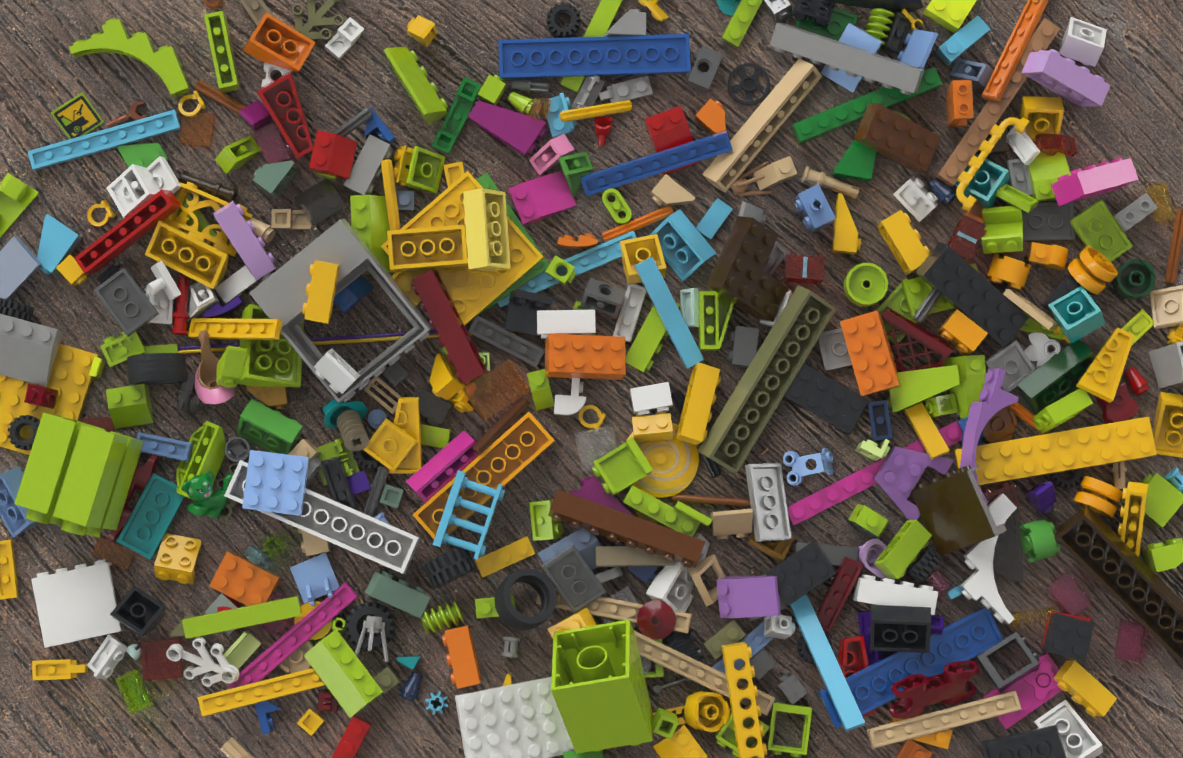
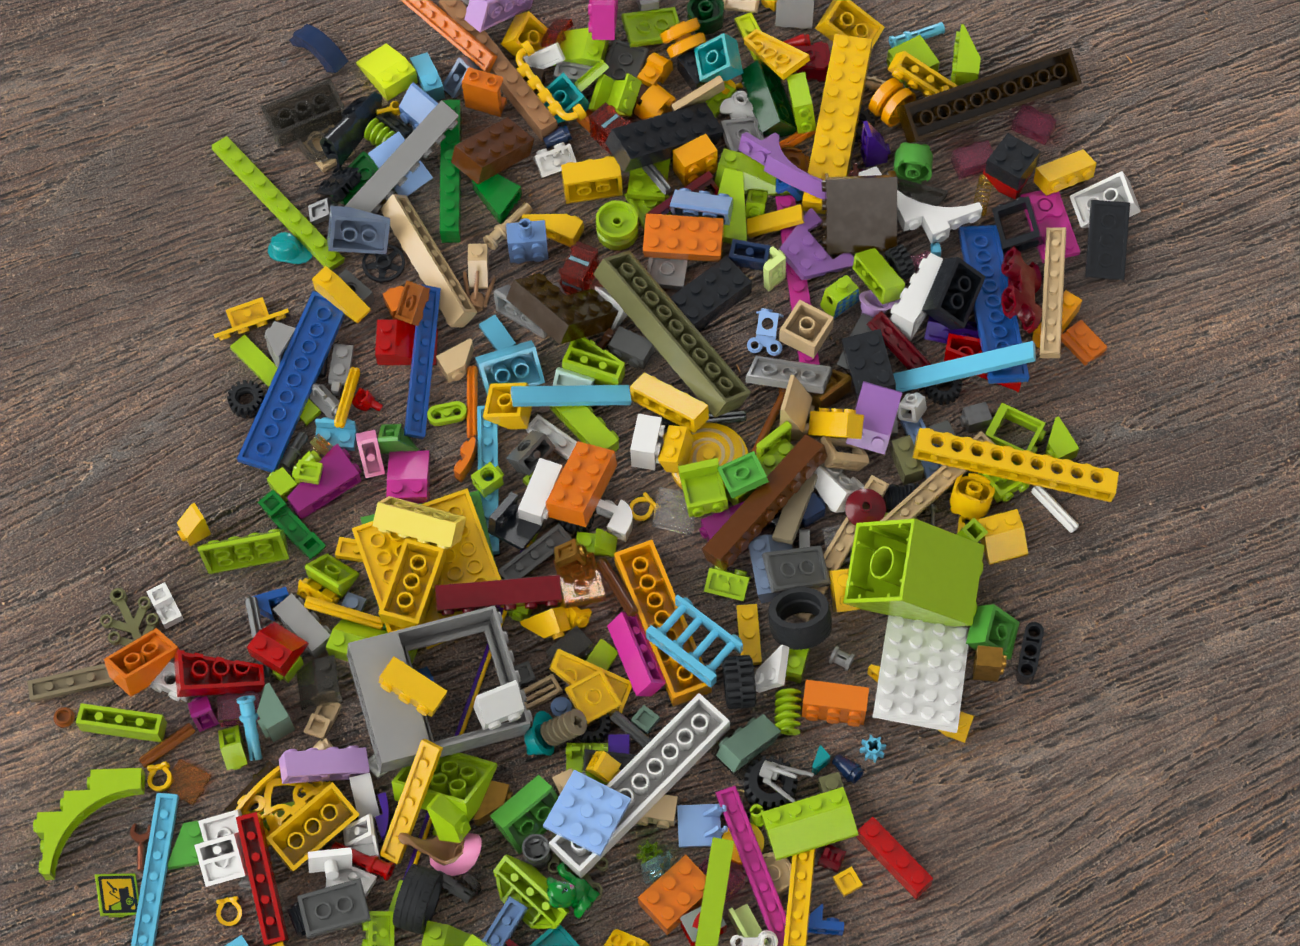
camera: 70 degrees left, 20 degrees down
(260, 159) = (248, 718): none -> medium azure pin
(324, 479) = (603, 766): none -> yellow slope
(471, 591) = (772, 671): none -> white wing
(505, 109) = (307, 472): none -> lime bracket
(518, 372) = (570, 552): none -> pearl gold bracket
(643, 499) = (742, 474): none -> bright green plate
(690, 62) = (340, 294): none -> yellow slope
(703, 132) = (412, 303): none -> dark orange plate
(727, 564) = (836, 423): none -> yellow brick
(752, 322) = (608, 335): none -> reddish brown piece
(763, 47) = (357, 231): none -> sand blue slope
(817, 502) = (806, 328): none -> tan brick
(907, 359) = (701, 204): none -> medium blue slope

